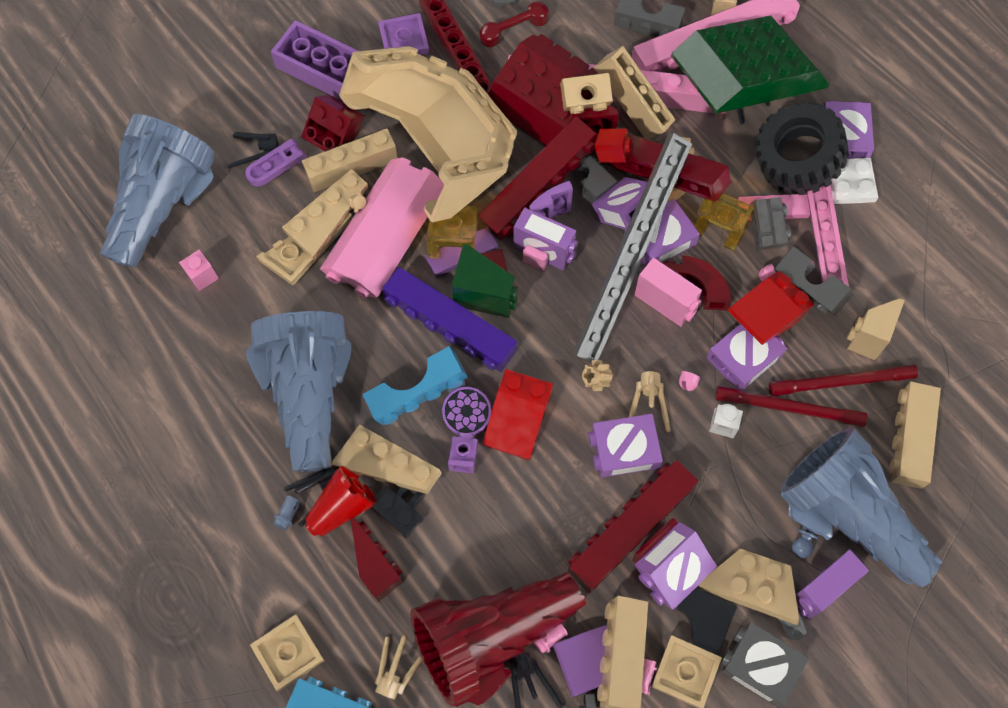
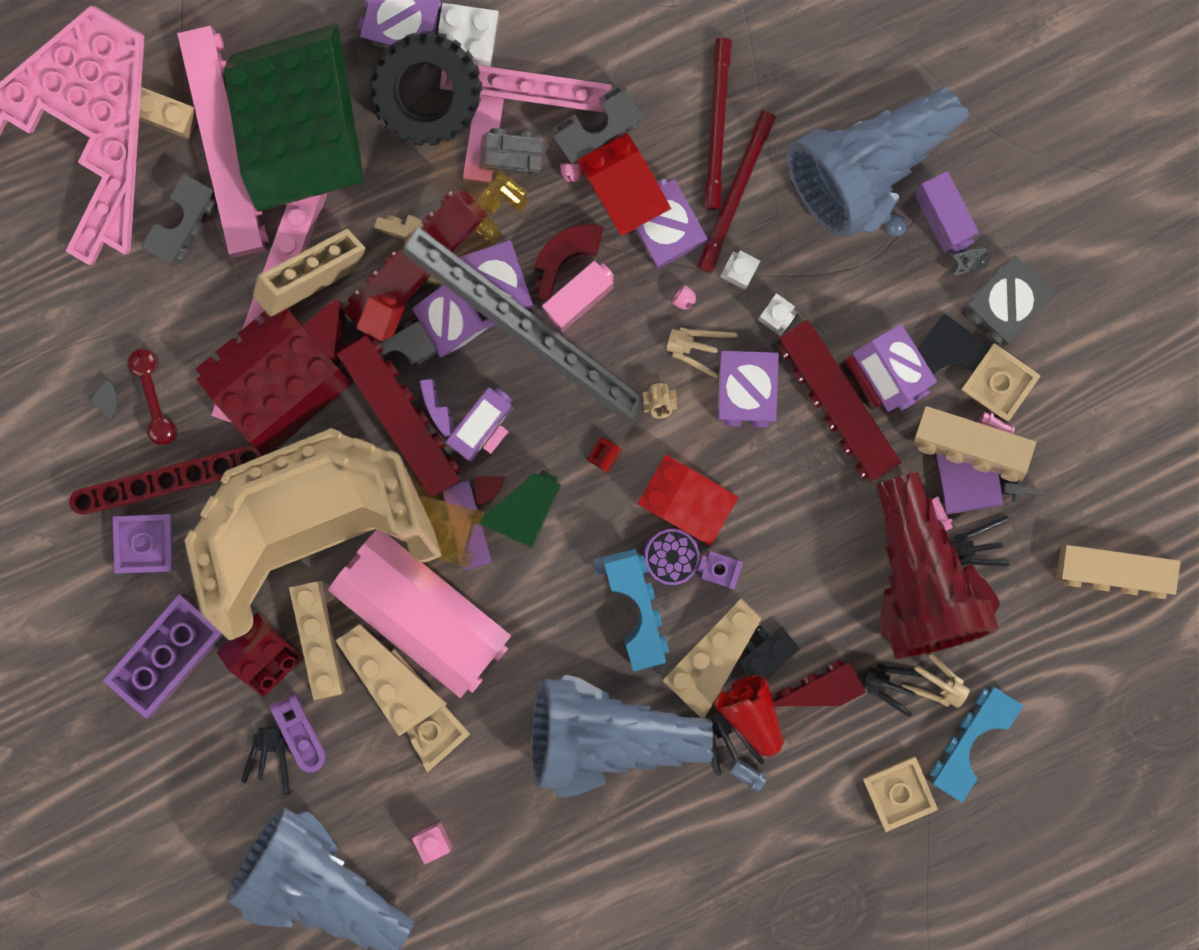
camera: 75 degrees left, 20 degrees up
(357, 202) = (384, 640): tan piece -> none
(387, 612) = (877, 679): none -> black plant
(449, 319) = (557, 553): dark purple brick -> none
(541, 345) = (604, 454): none -> red slope
(597, 84) = (301, 349): tan brick -> none
(696, 457) = (778, 315): none -> white brick
(755, 584) = (927, 286): tan wing -> none
(875, 329) = (672, 71): tan slope -> none
(915, 435) = (798, 65): tan brick -> none

